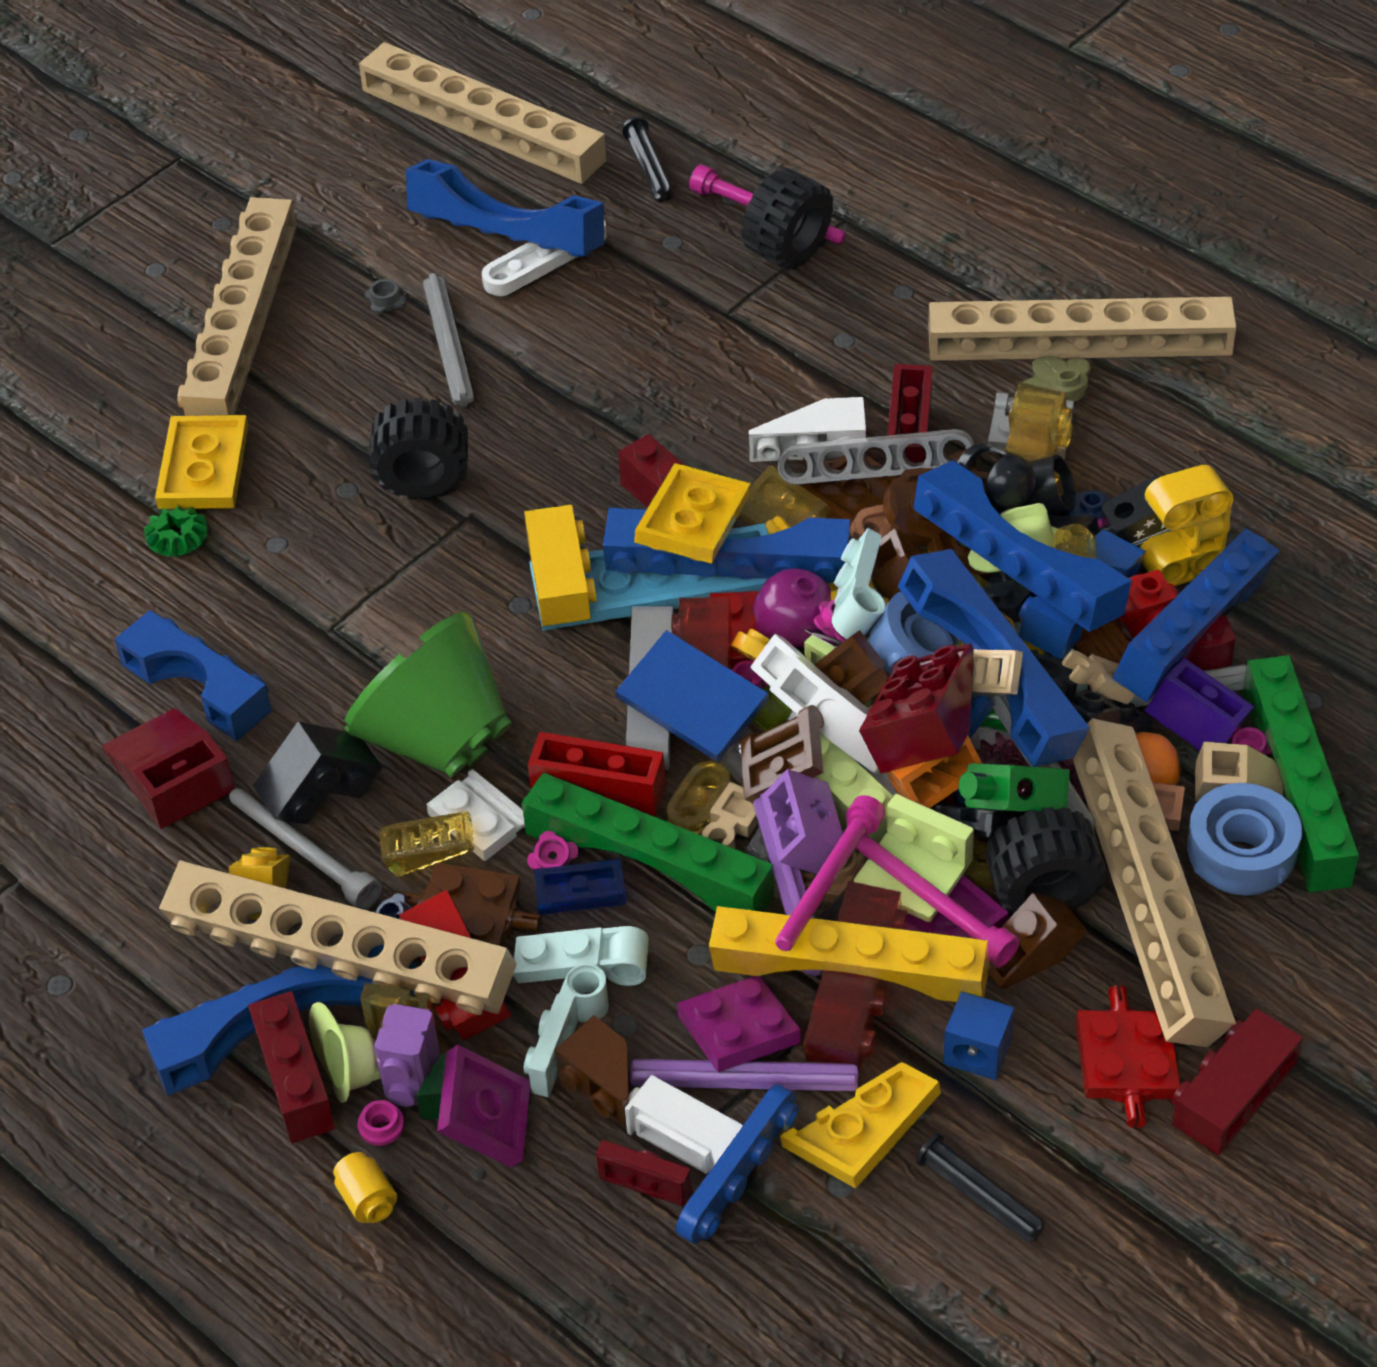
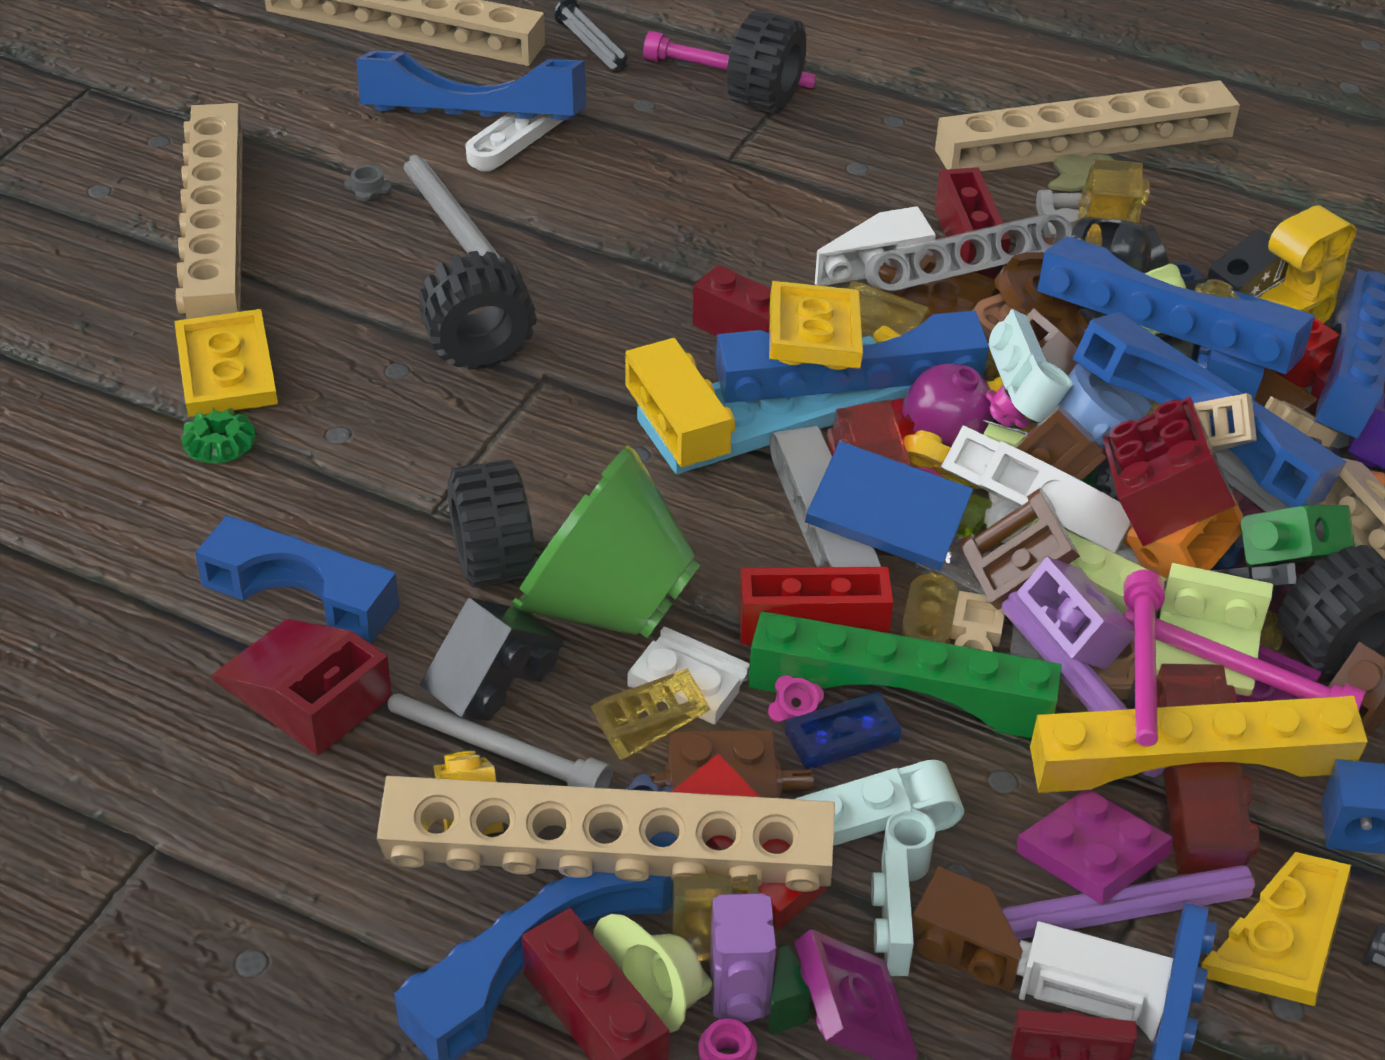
camera: 20 degrees left, 5 degrees down
(351, 649) = (491, 522): none -> black tyre

